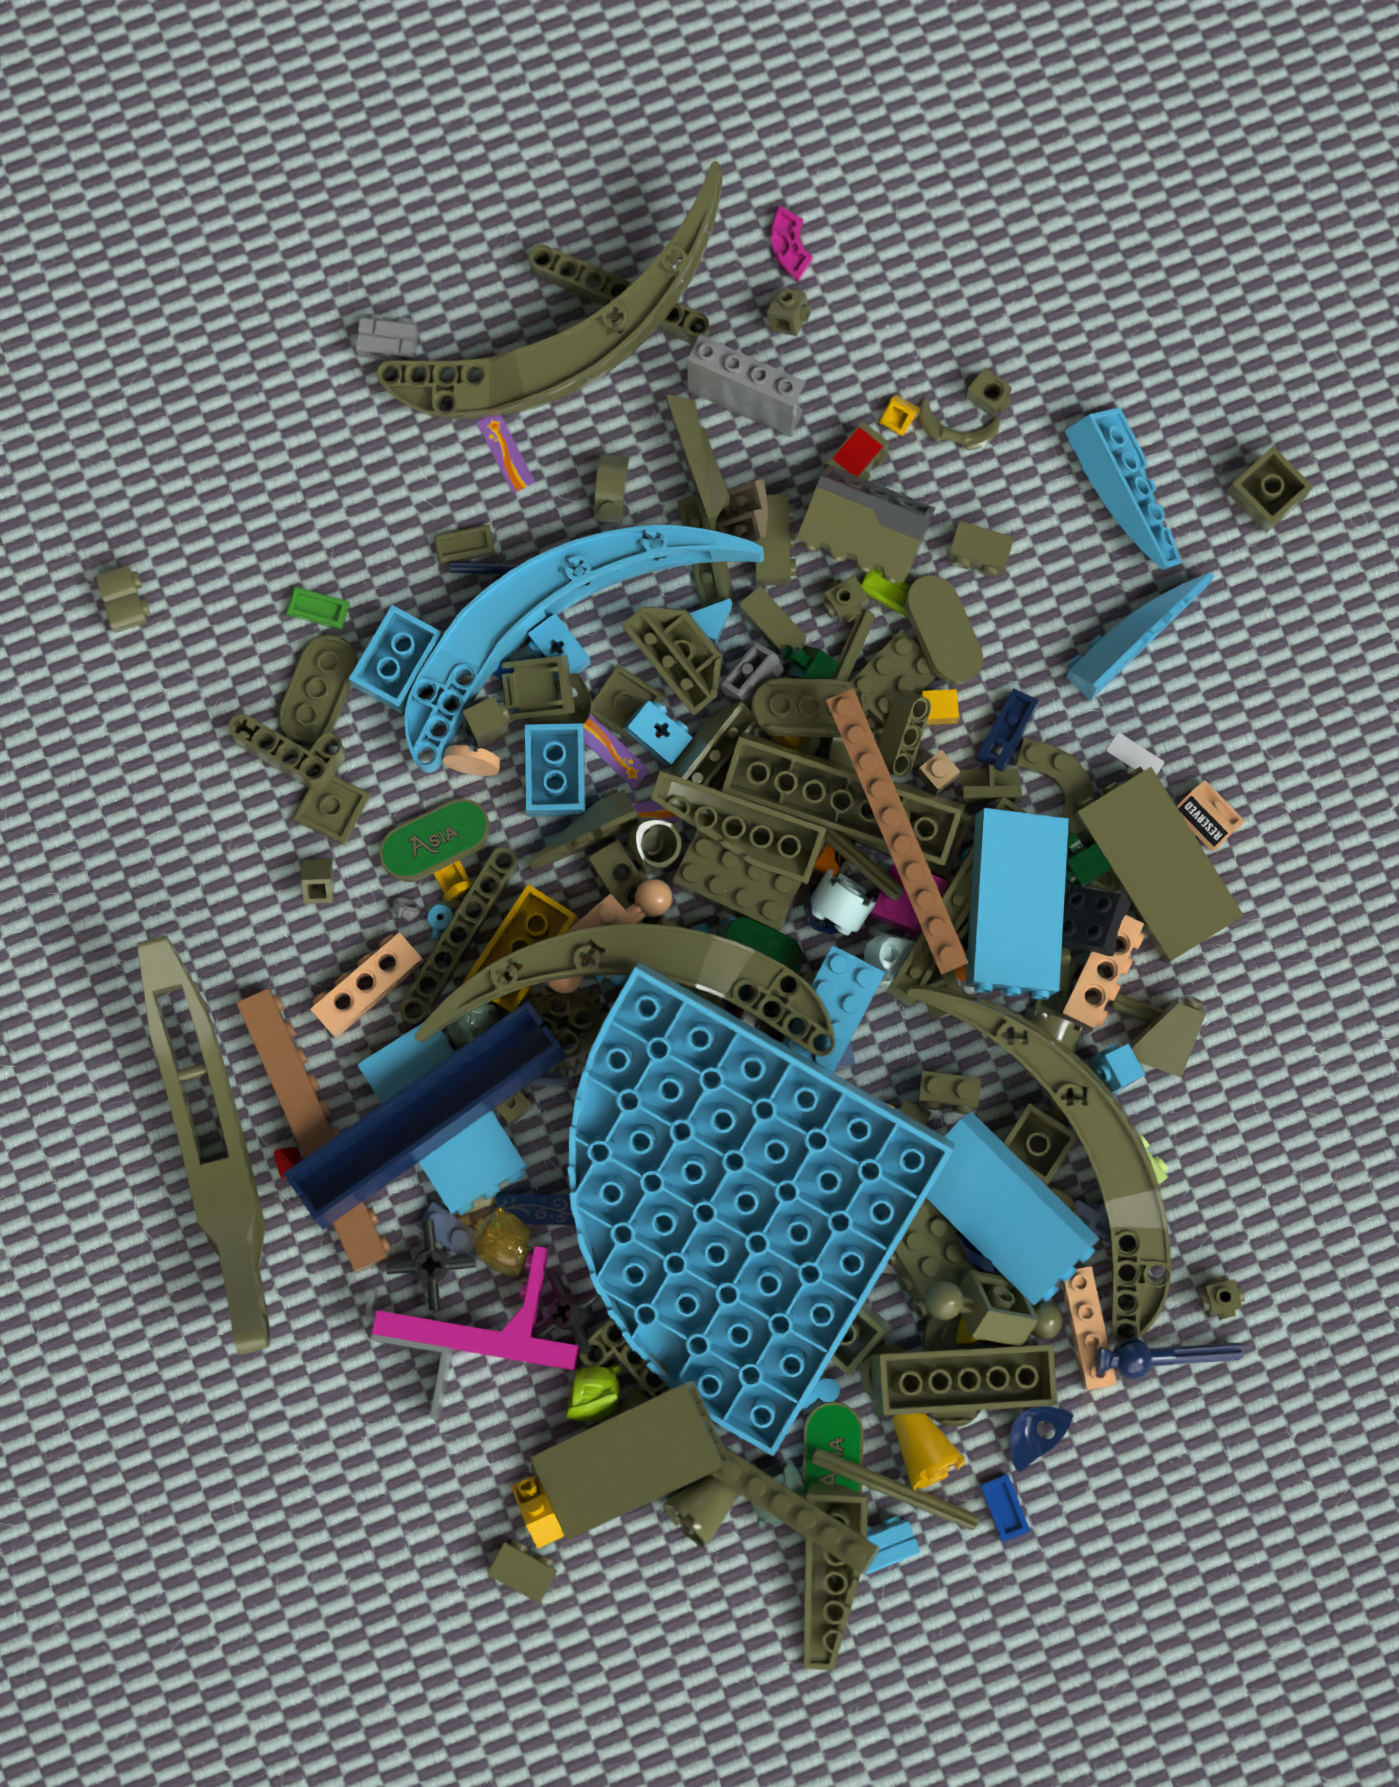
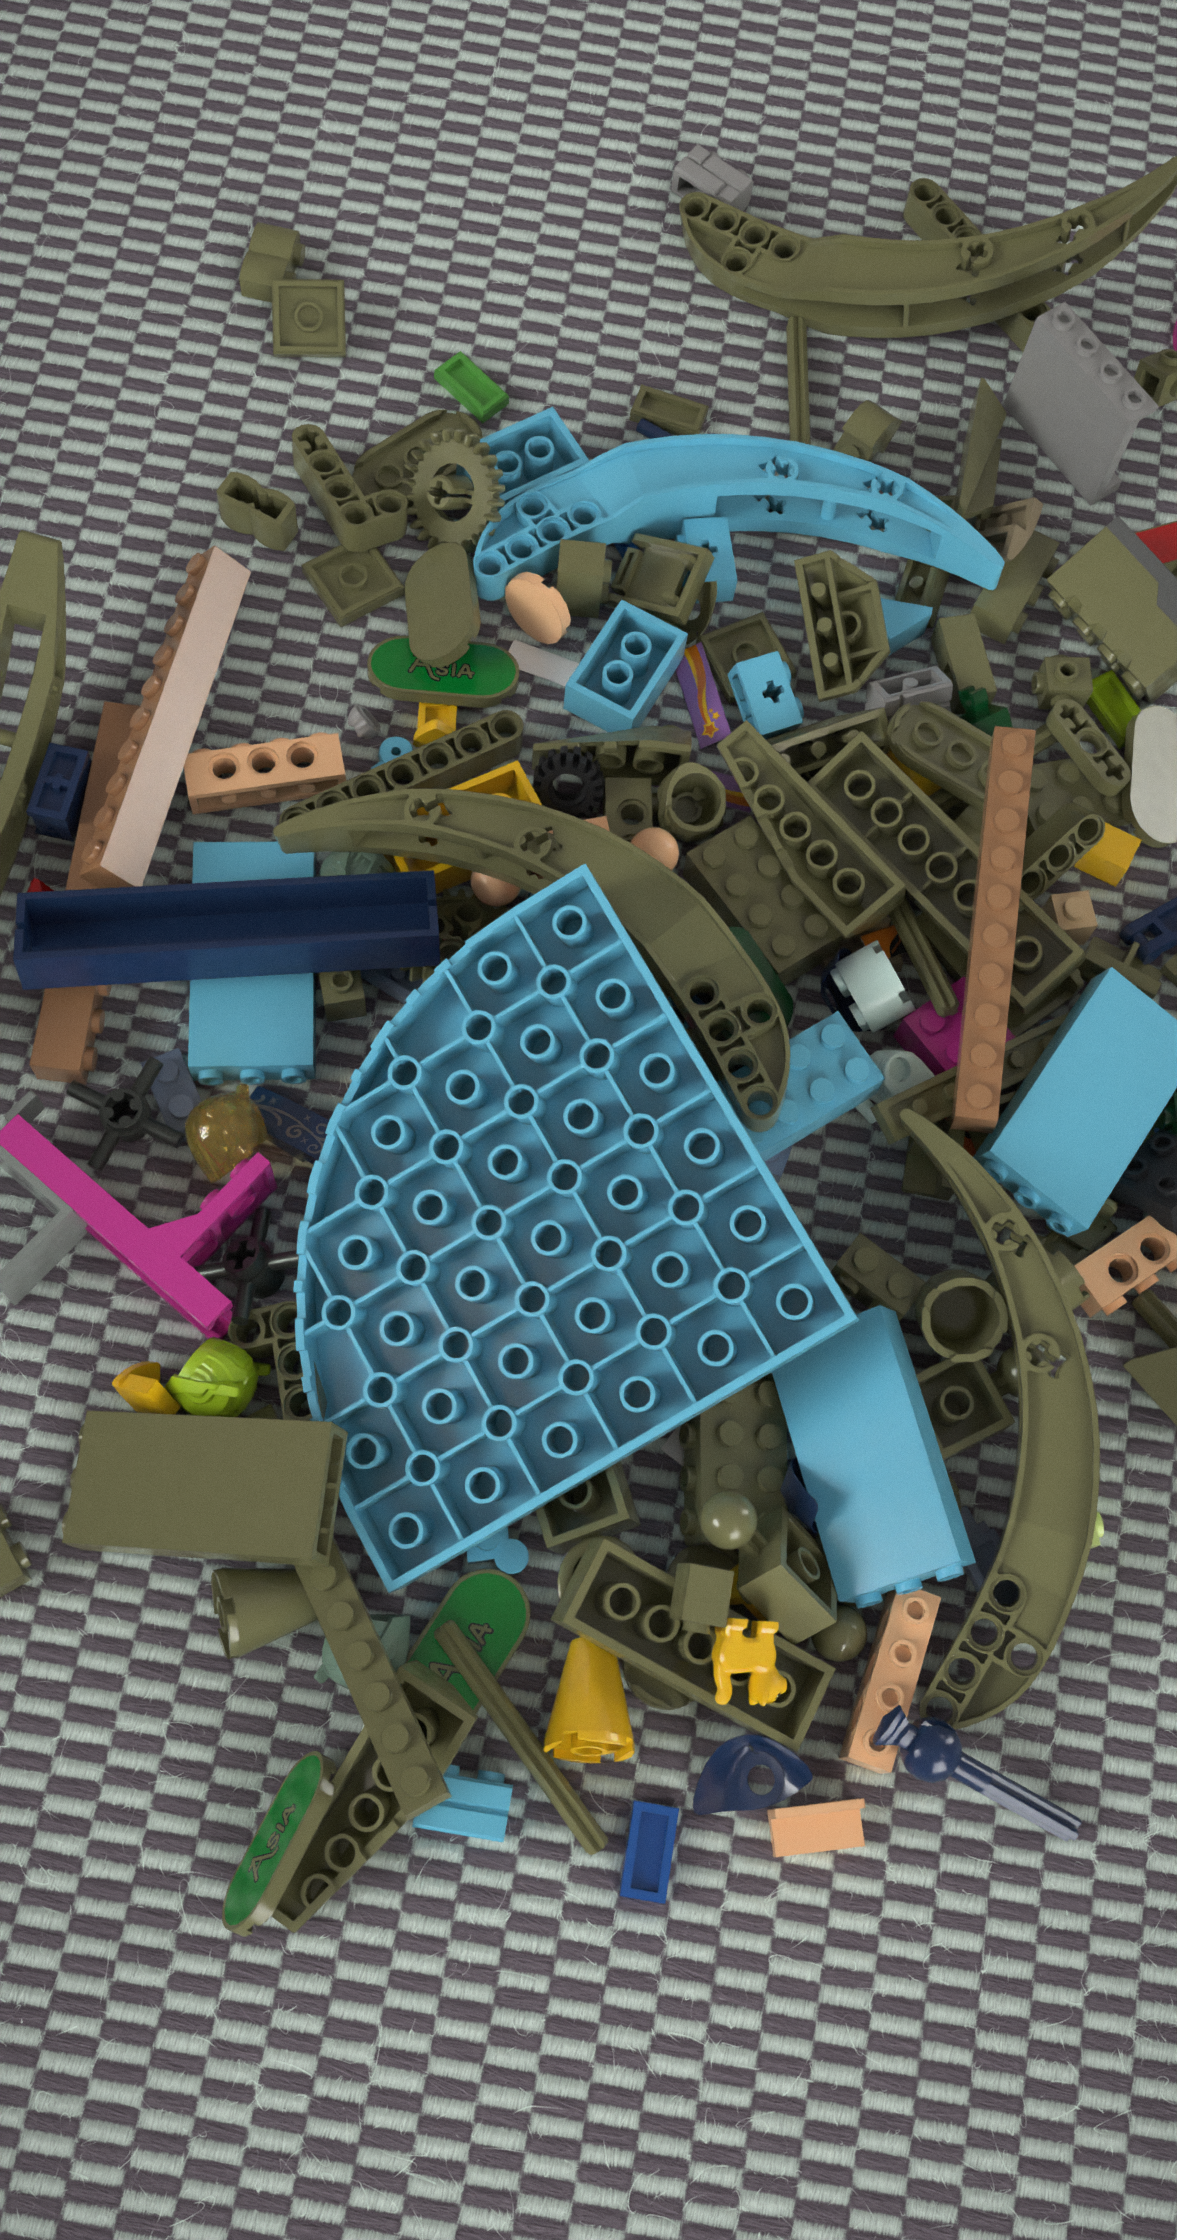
camera: 20 degrees right, 10 degrees down
(177, 628) = (308, 318): none -> olive tile
(250, 800) = (257, 511): none -> olive brick
(250, 1080) = (60, 792): none -> dark blue hinge
(286, 992) = (165, 722): none -> brick
(317, 881) = (283, 634): olive brick -> none
(358, 719) = (438, 453): none -> olive gear
(407, 797) = (442, 605): none -> olive tile
(494, 790) = (542, 663): none -> white sticker
(506, 452) = (770, 356): medium lavender sticker -> none
(537, 1511) = (48, 1487): yellow slope -> none
(543, 473) = (798, 380): none -> olive axle
(550, 1425) = (143, 1391): none -> yellow tile
(560, 868) = (572, 764): none -> black tyre
(796, 1628) = (279, 1844): none -> tile
(883, 629) = (1064, 722): none -> olive beam
(954, 1354) = (701, 1597): none -> olive brick
(1000, 1368) = (755, 1655): none -> yellow animal
(1010, 1092) = (961, 1315): none -> olive cylinder
(1092, 1437) = (816, 1827): none -> light nougat panel
(1117, 1067) = (1113, 1368): medium azure brick -> none
(1210, 1297) = (1074, 1747): olive brick -> none

